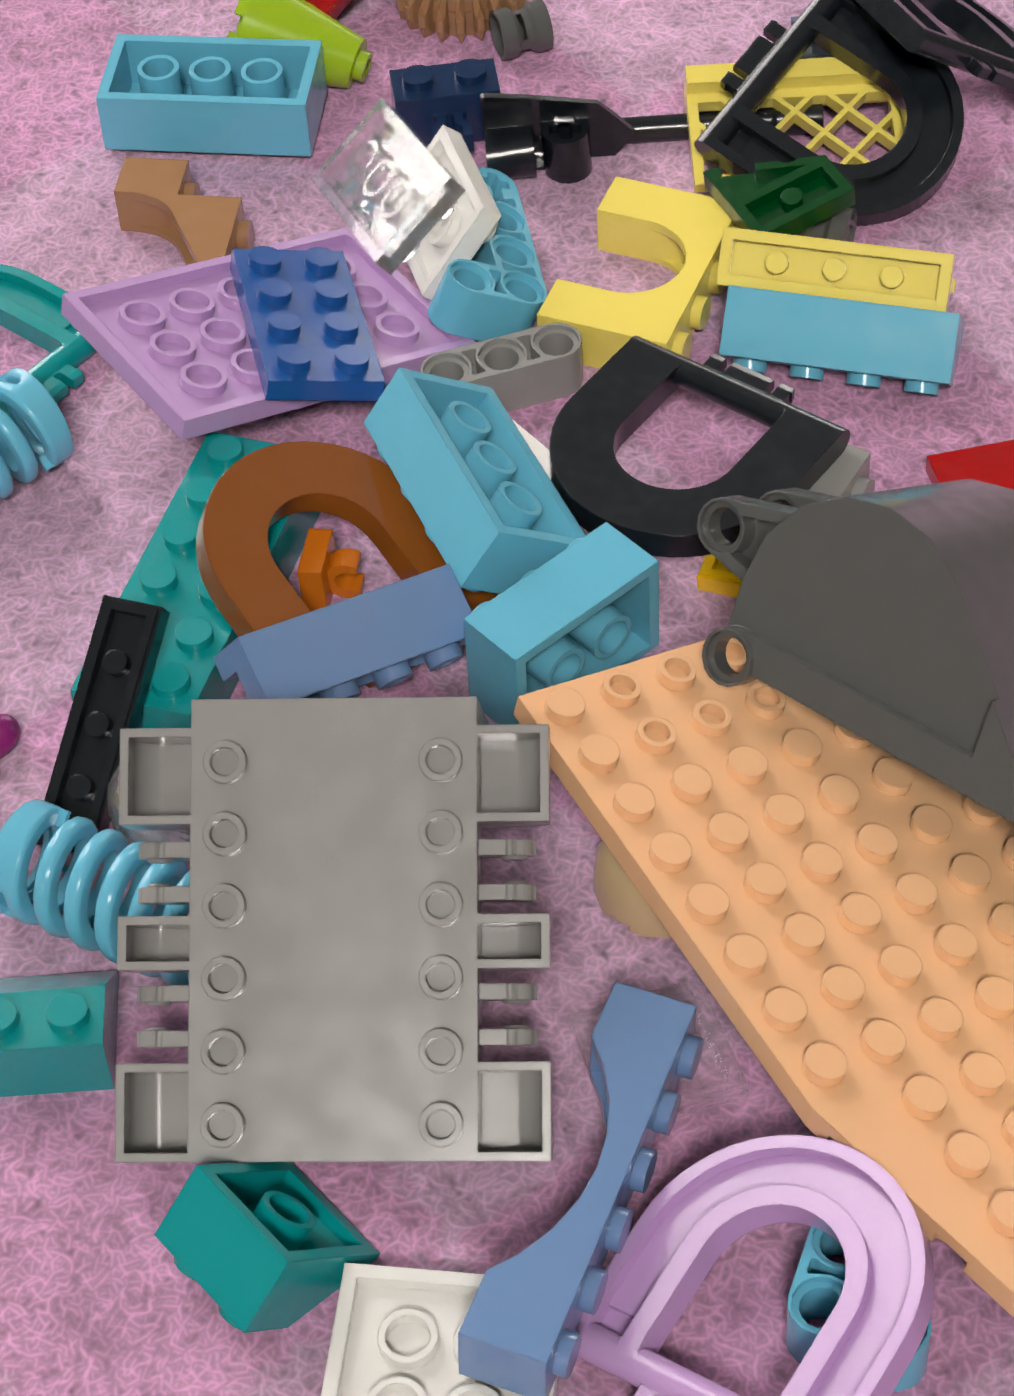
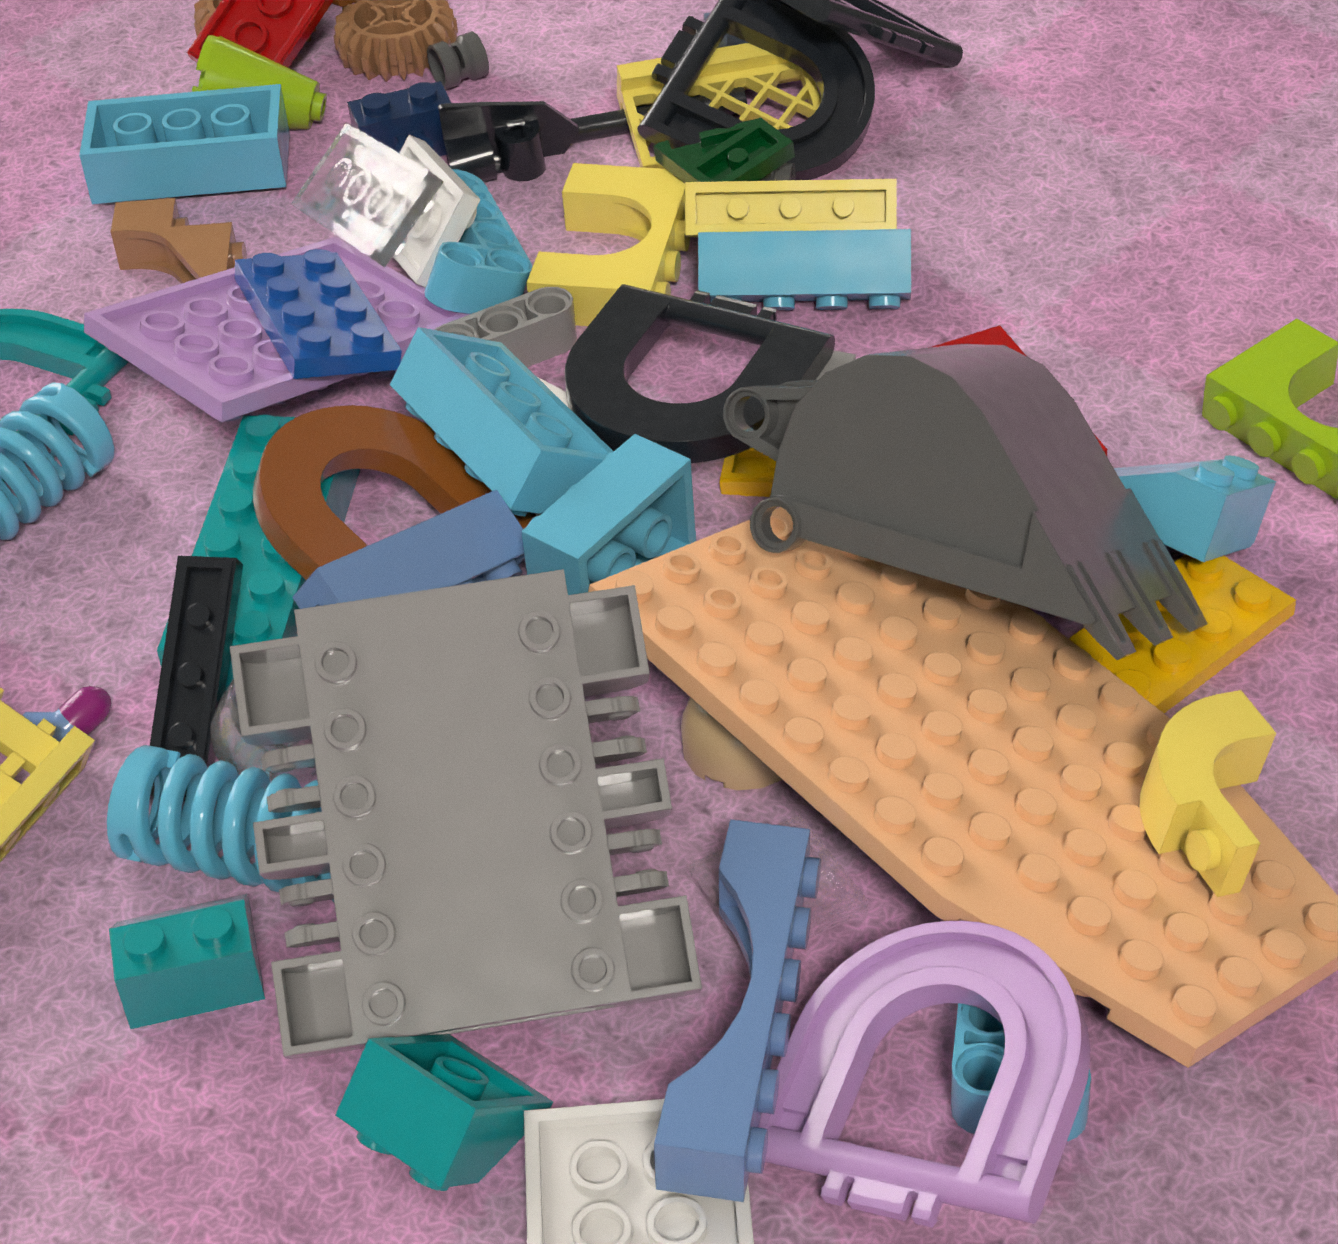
camera: 10 degrees left, 5 degrees down
(327, 570) = (374, 519): orange tile -> none

